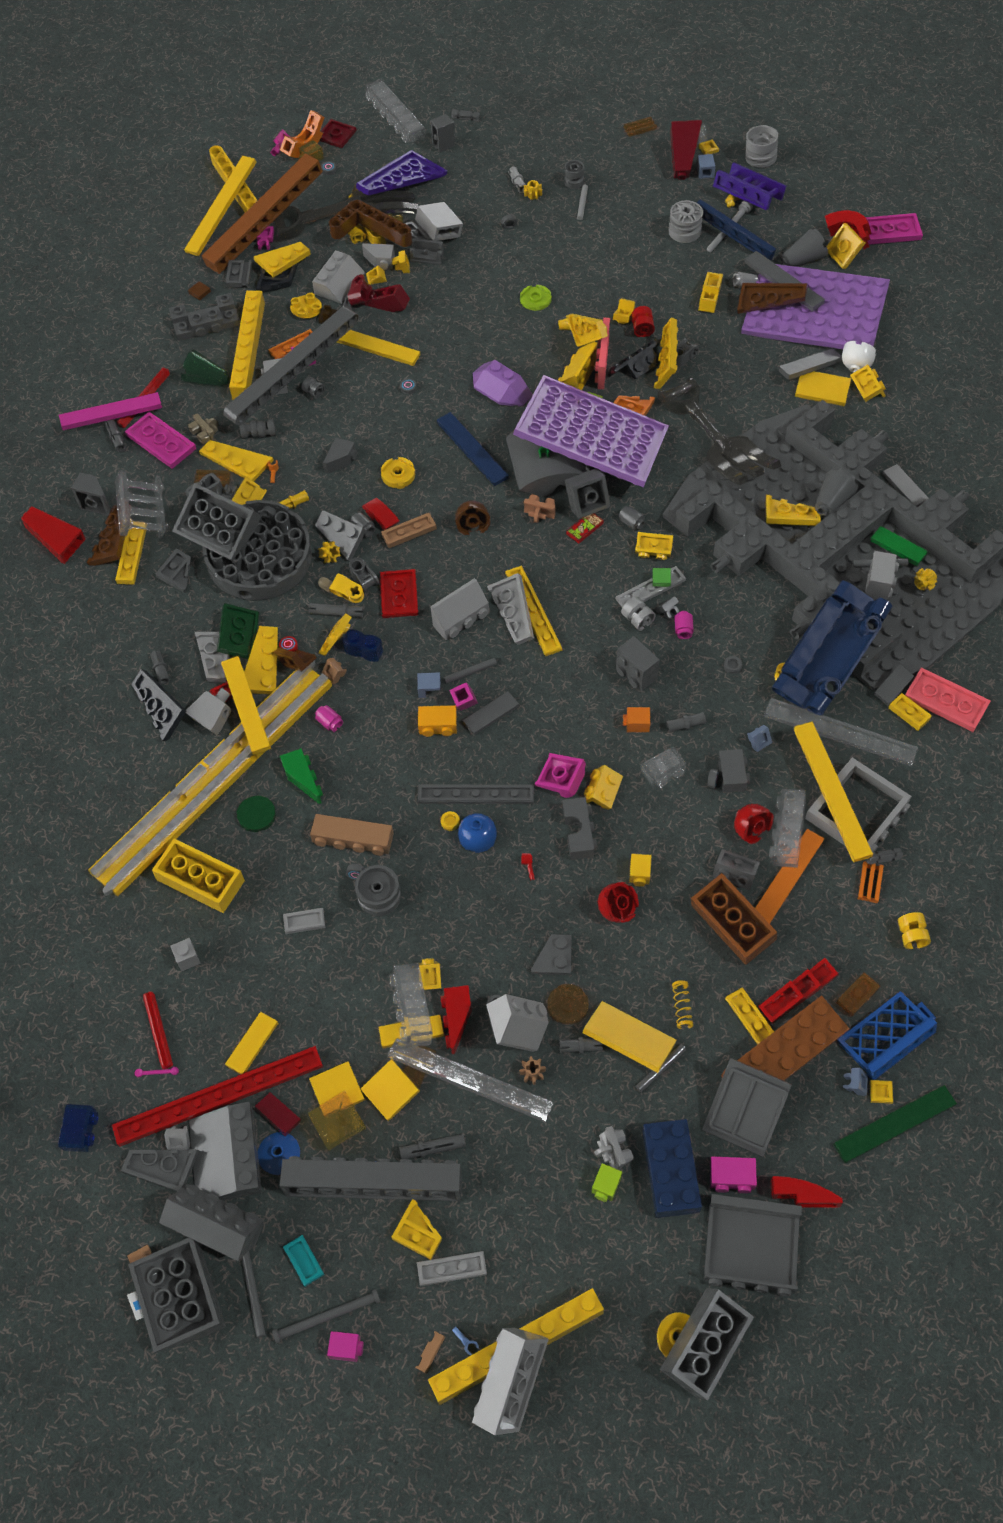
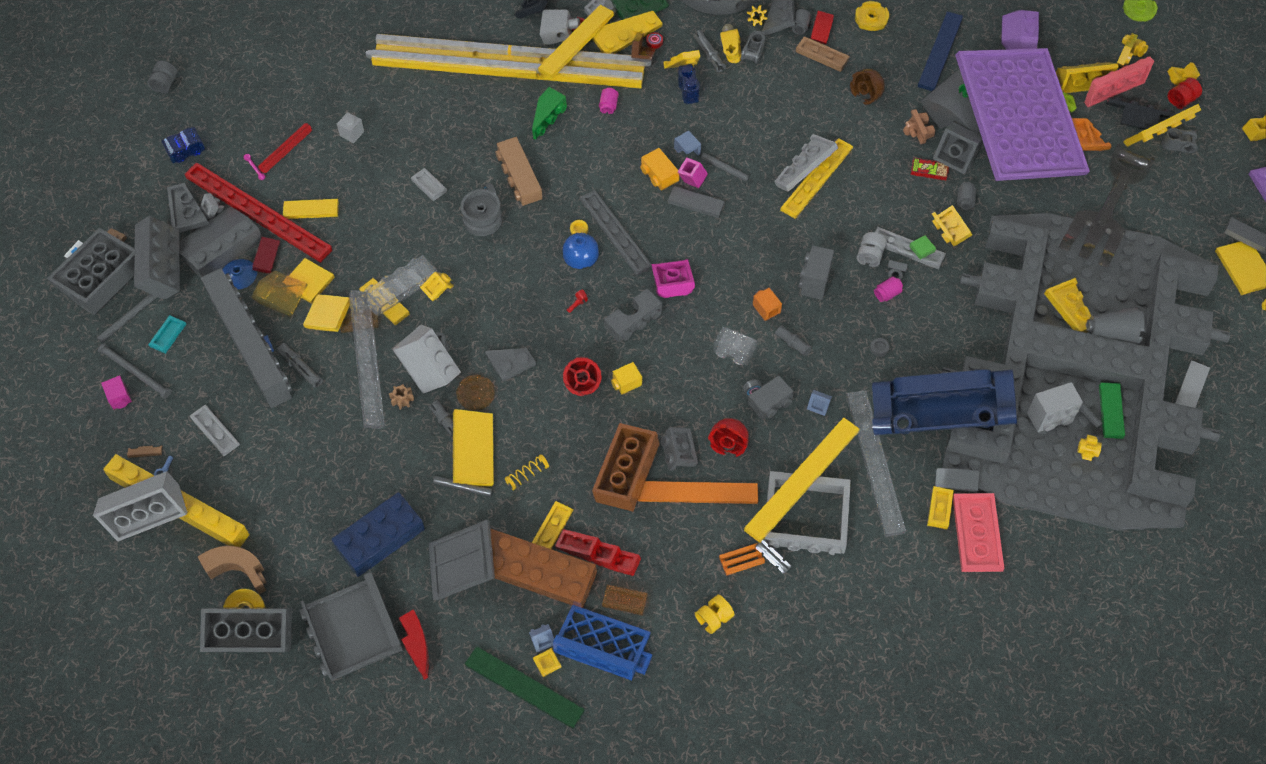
camera: 55 degrees right, 0 degrees up
(198, 875) = (416, 98): yellow brick -> none
(256, 813) = (495, 104): dark green tile -> none
(333, 670) = (653, 79): medium nougat tile -> none
(399, 593) = (758, 81): red tile -> none
(417, 1232) = (228, 391): yellow wing -> none
(458, 1011) = (422, 314): red slope -> none
(459, 609) = (770, 125): light grey slope -> none
(603, 786) = (685, 315): yellow bracket -> none
(606, 1183) = (339, 495): lime brick -> none
(610, 1148) = (365, 493): light grey hips -> none
(617, 1316) = (233, 558): none -> medium nougat arch
(733, 1174) = (401, 581): dark pink brick -> none
(789, 828) = (744, 467): clear brick -> none

